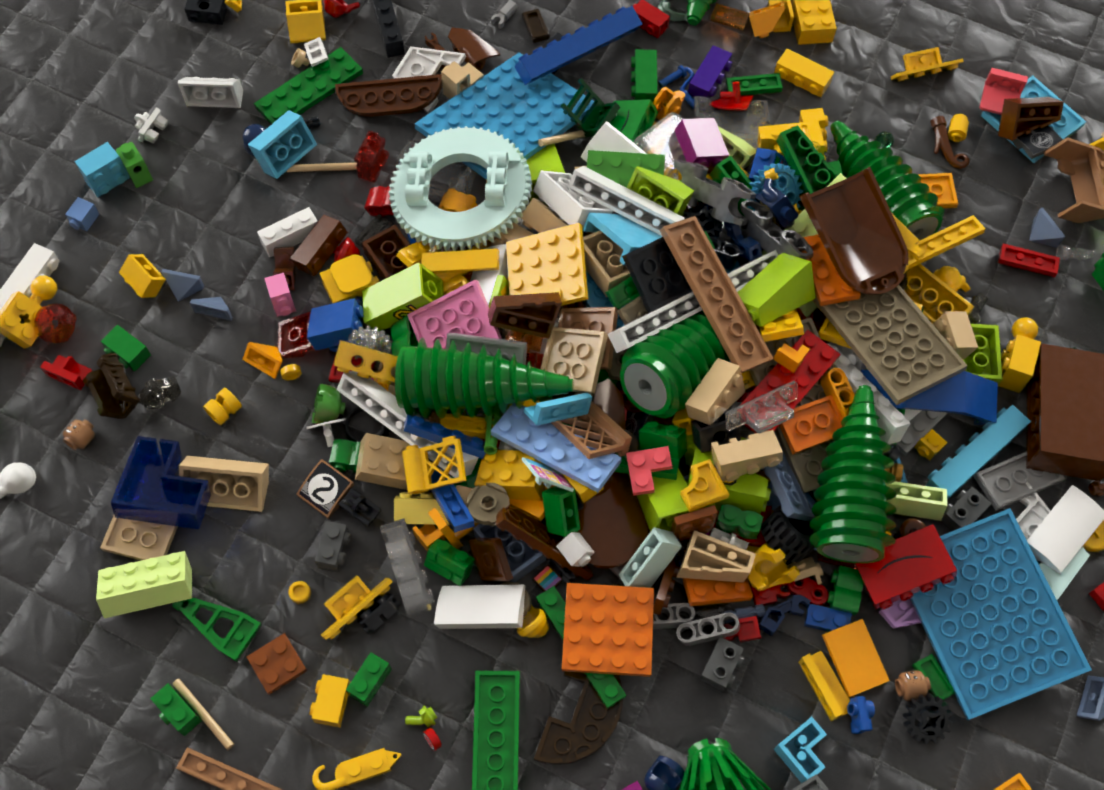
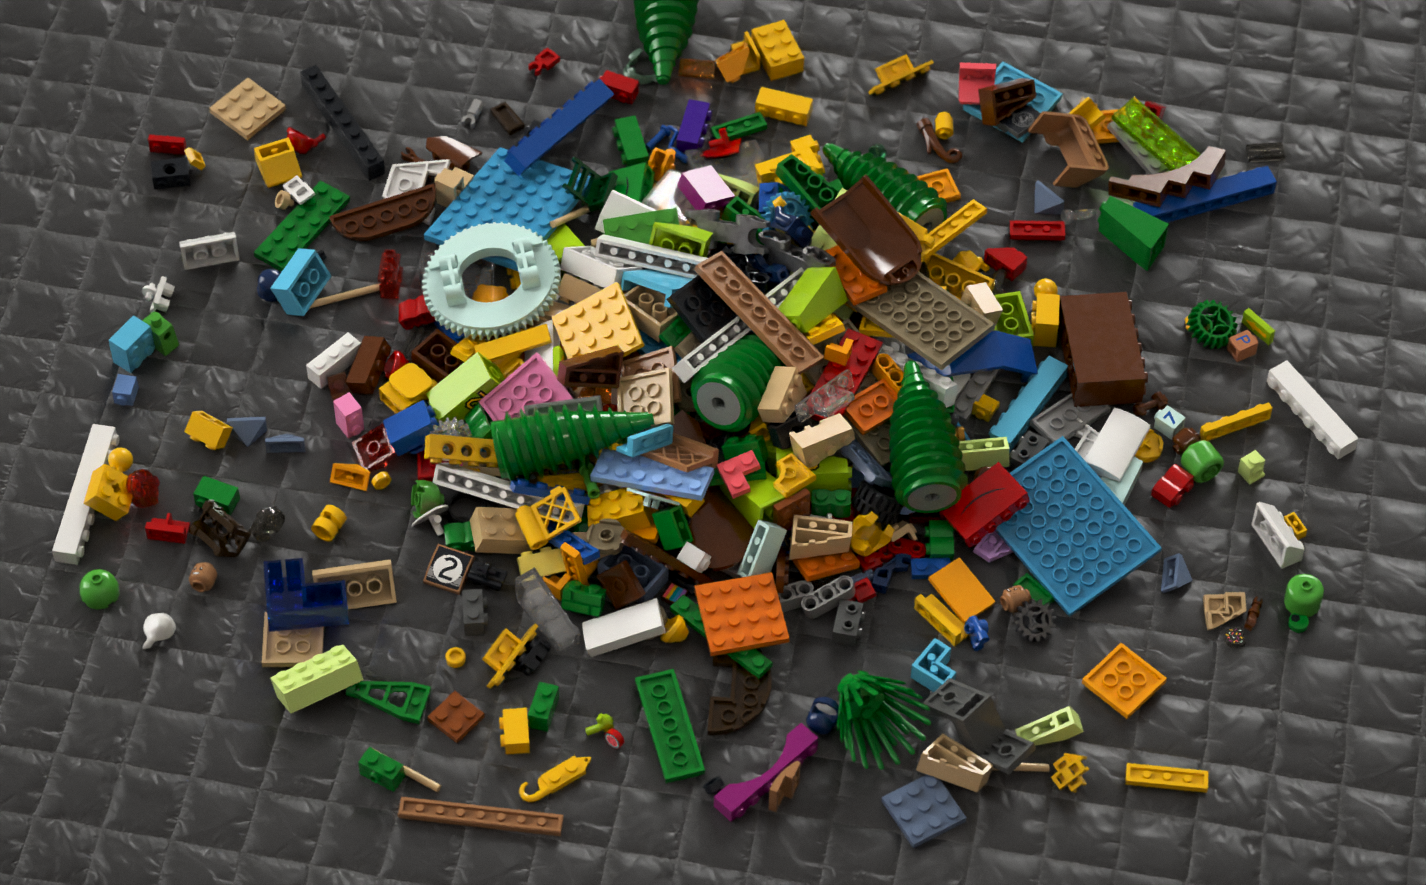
camera: 15 degrees left, 10 degrees down
(990, 284) = (1008, 259): none -> red slope

